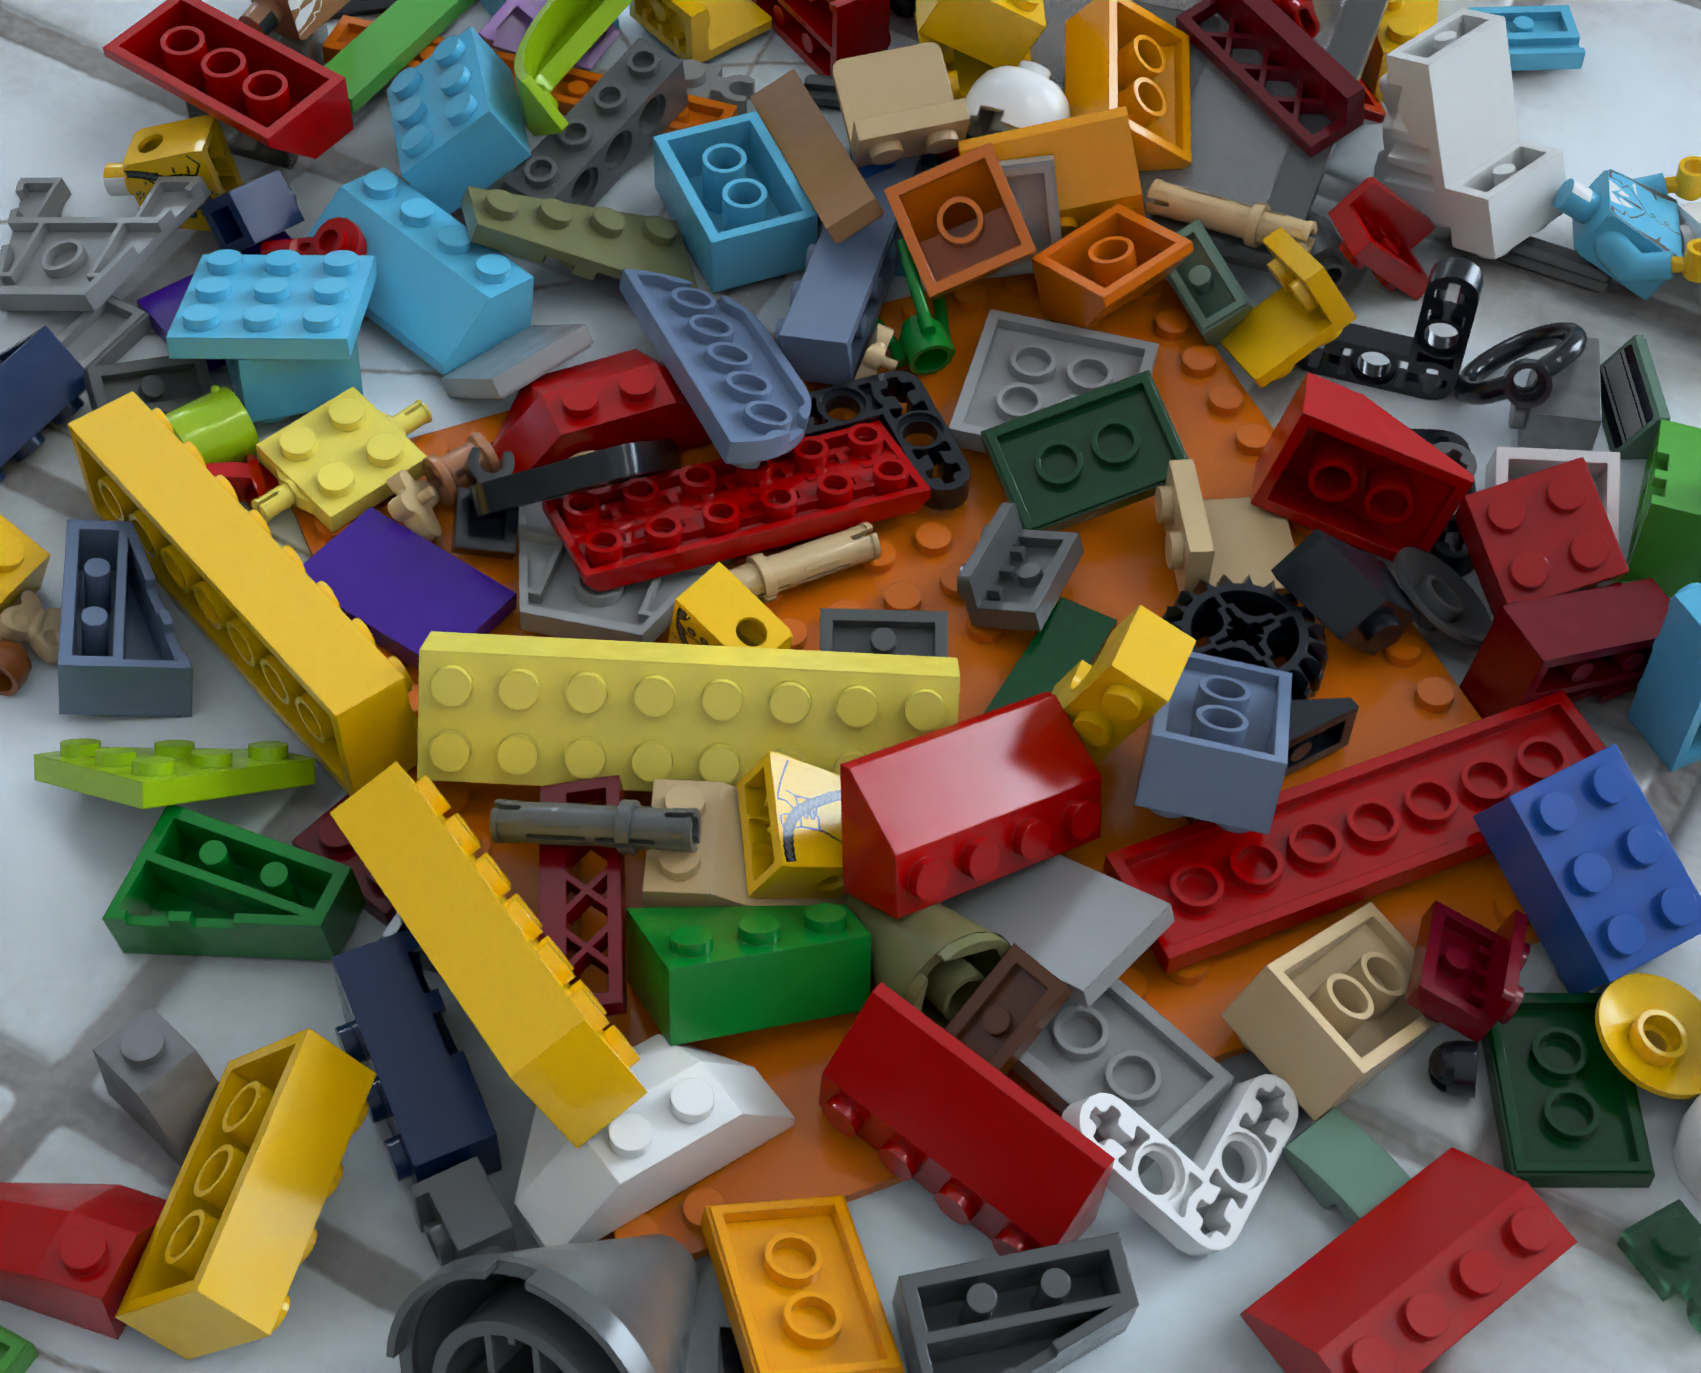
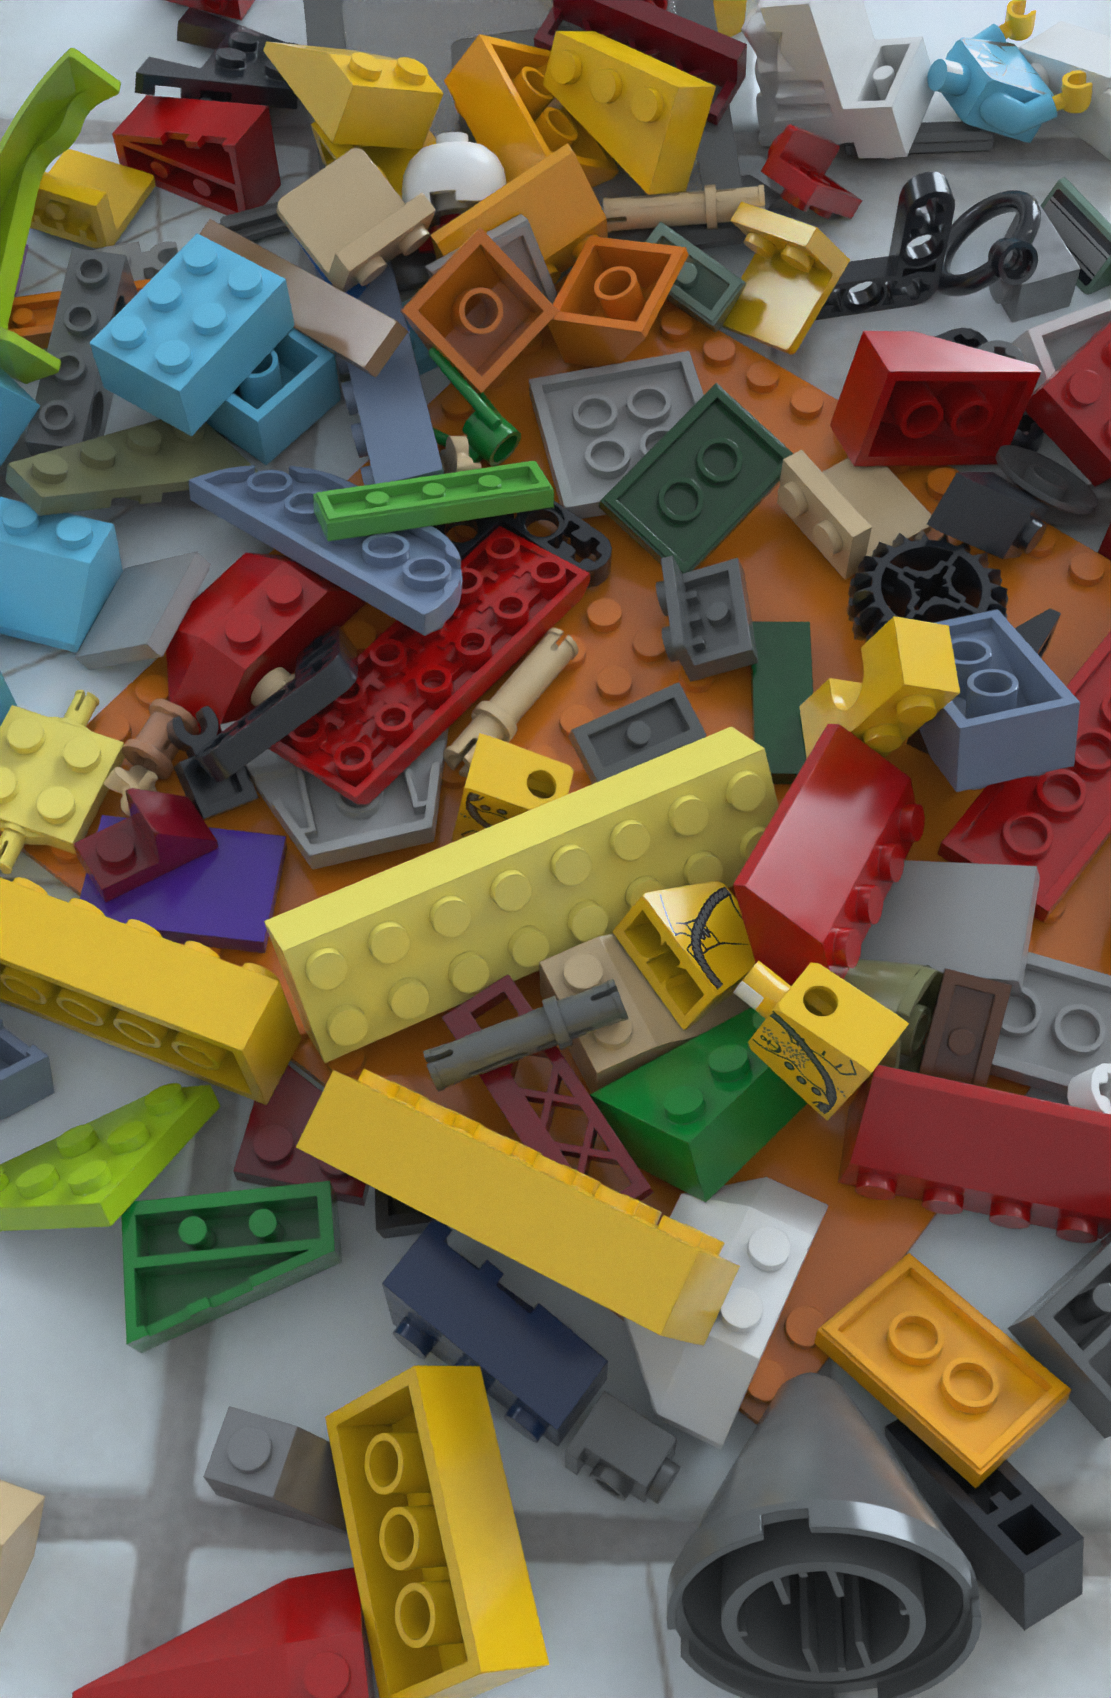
camera: 25 degrees left, 10 degrees up
(397, 543) = (151, 842): none -> dark red slope
(696, 145) = (193, 334): none -> medium azure brick
(822, 366) = (432, 500): none -> bright green tile
(842, 929) = (818, 1032): none -> yellow torso
(1224, 106) = (632, 106): none -> yellow wedge

